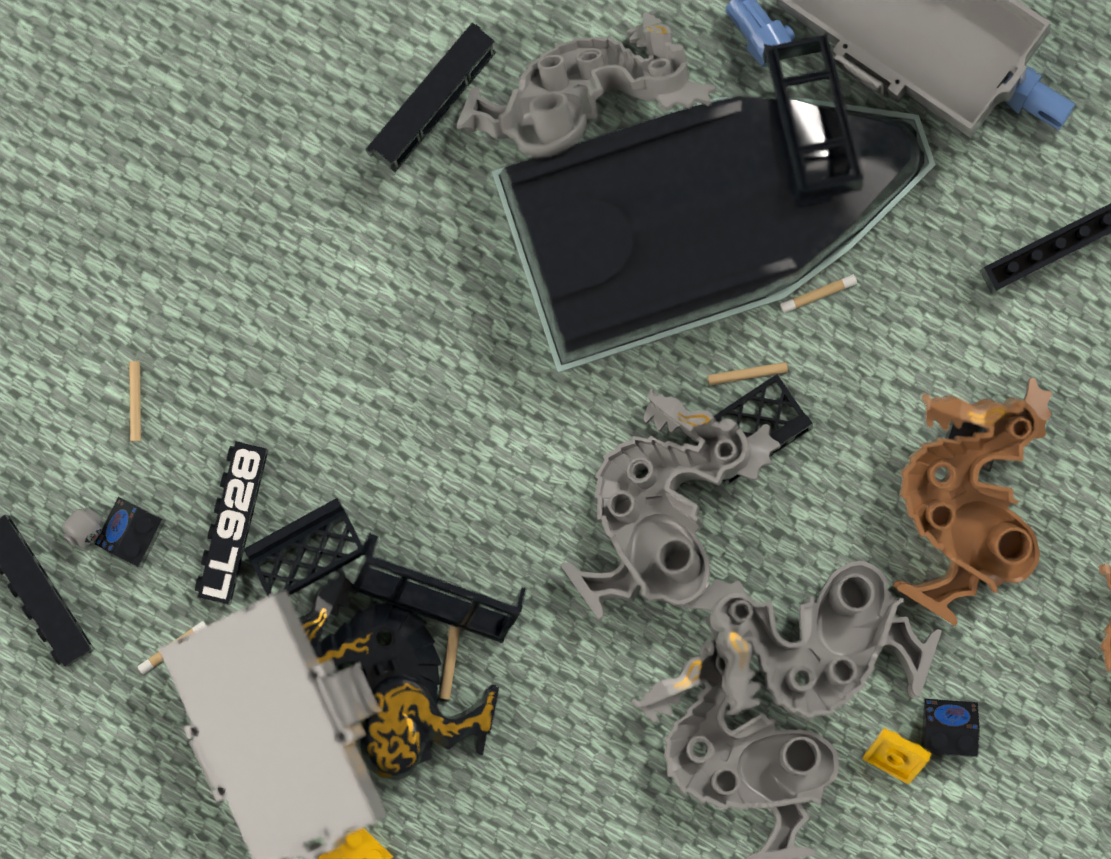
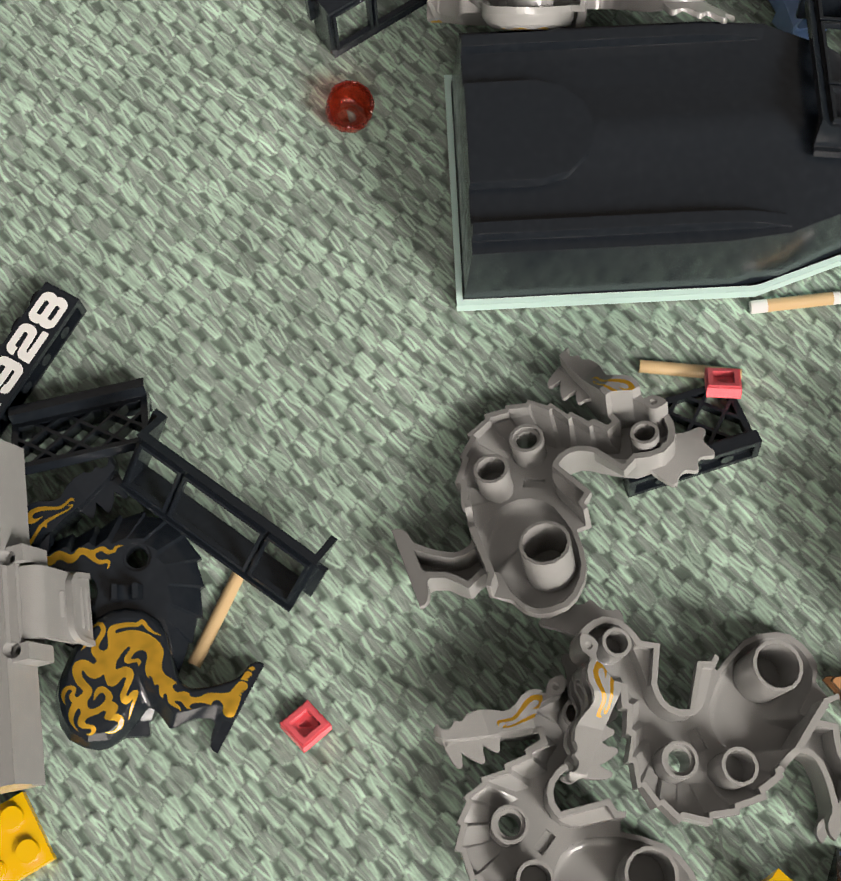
camera: 20 degrees right, 15 degrees down
(414, 227) = (349, 97): none -> clear red hair
(538, 719) = (305, 726): none -> coral tile
(774, 382) = (723, 383): none -> coral tile

